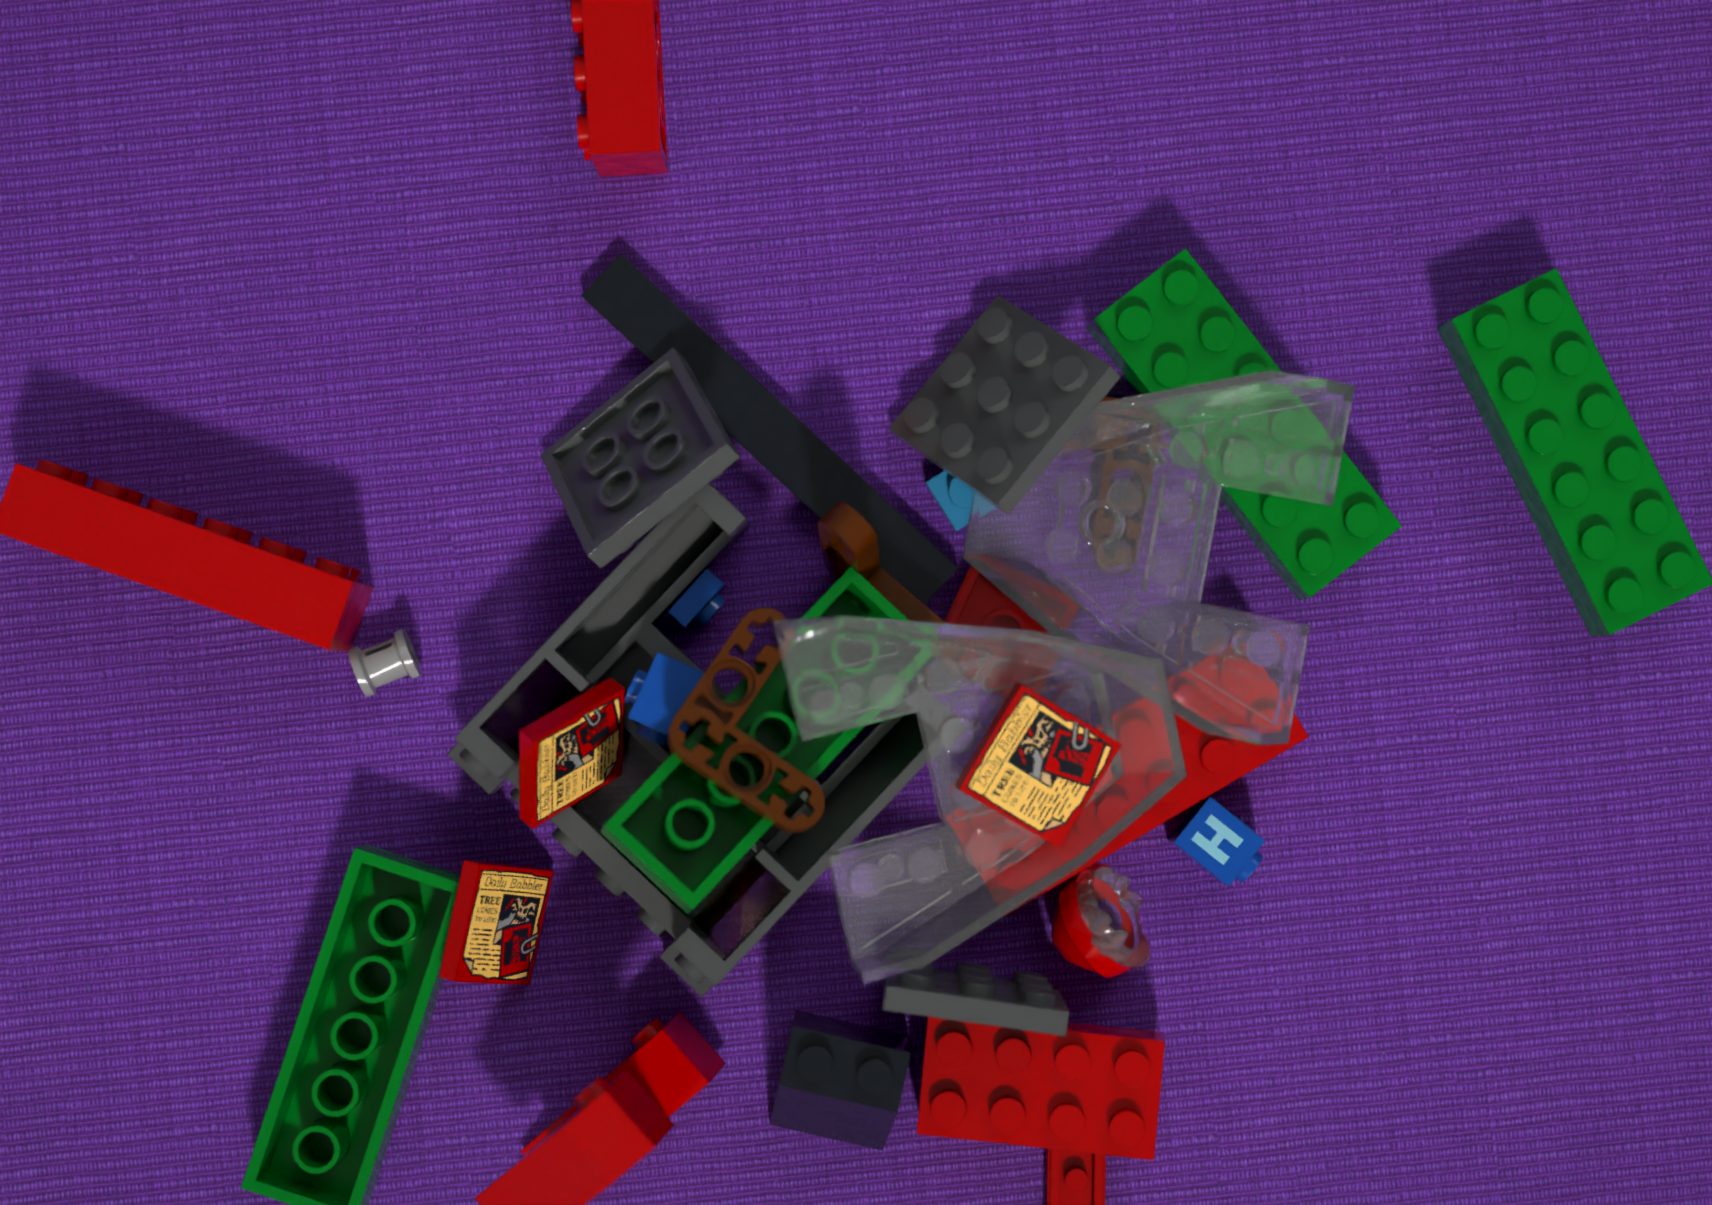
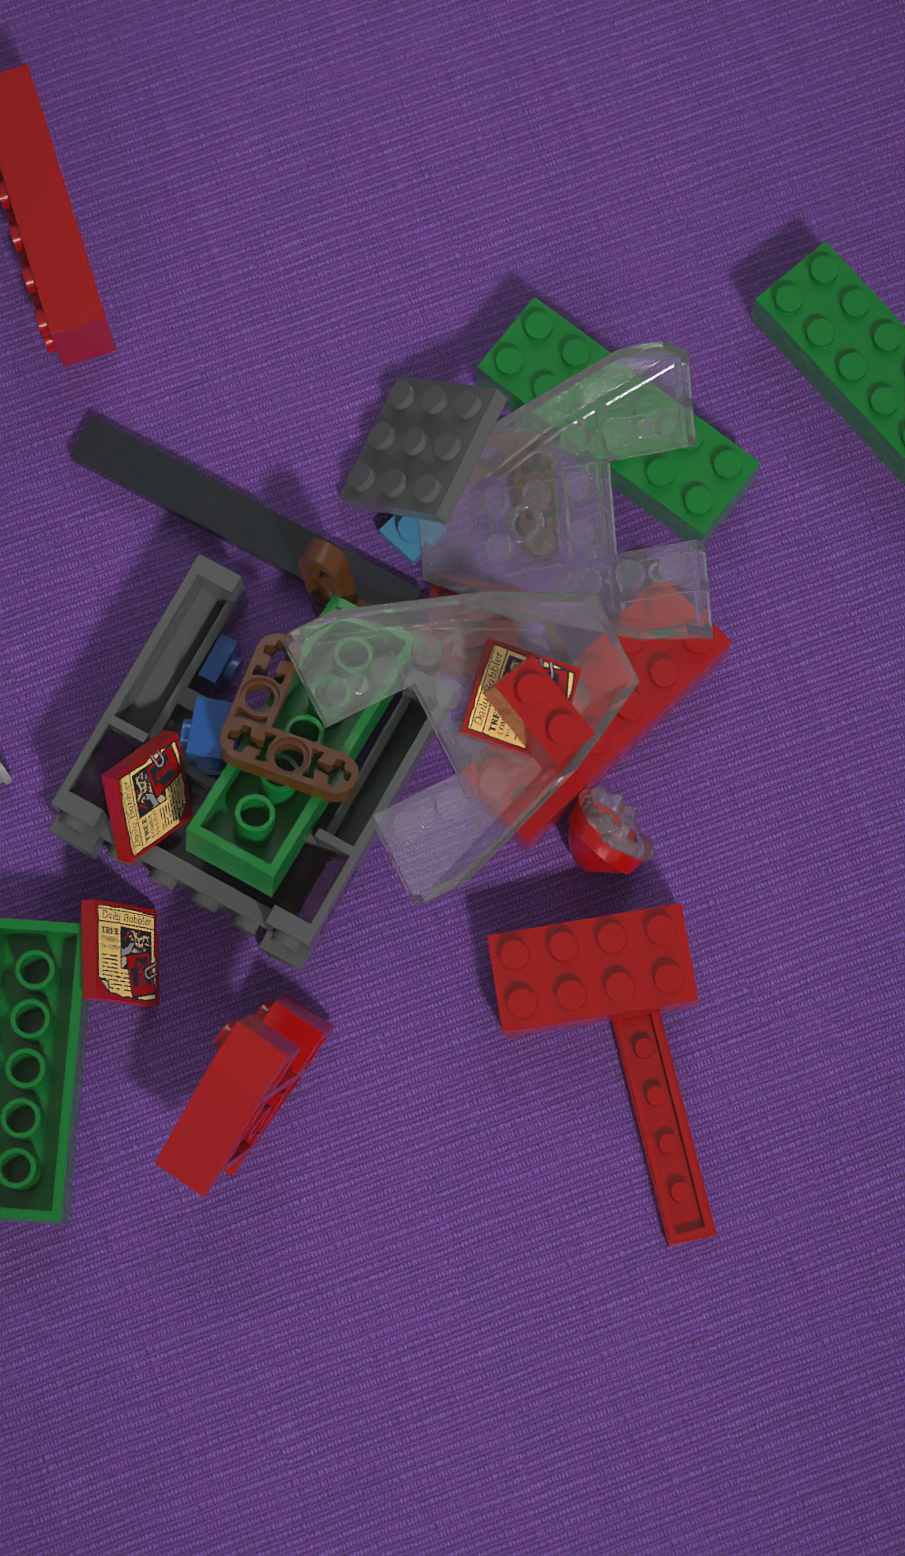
camera: 10 degrees left, 10 degrees down
(638, 457) = (145, 557): dark grey plate -> none
(841, 1080) = (429, 1011): black slope -> none
(979, 998) = (518, 904): dark grey plate -> none
(1056, 796) = (538, 713): none -> red brick
(1218, 842) = (685, 748): blue brick -> none

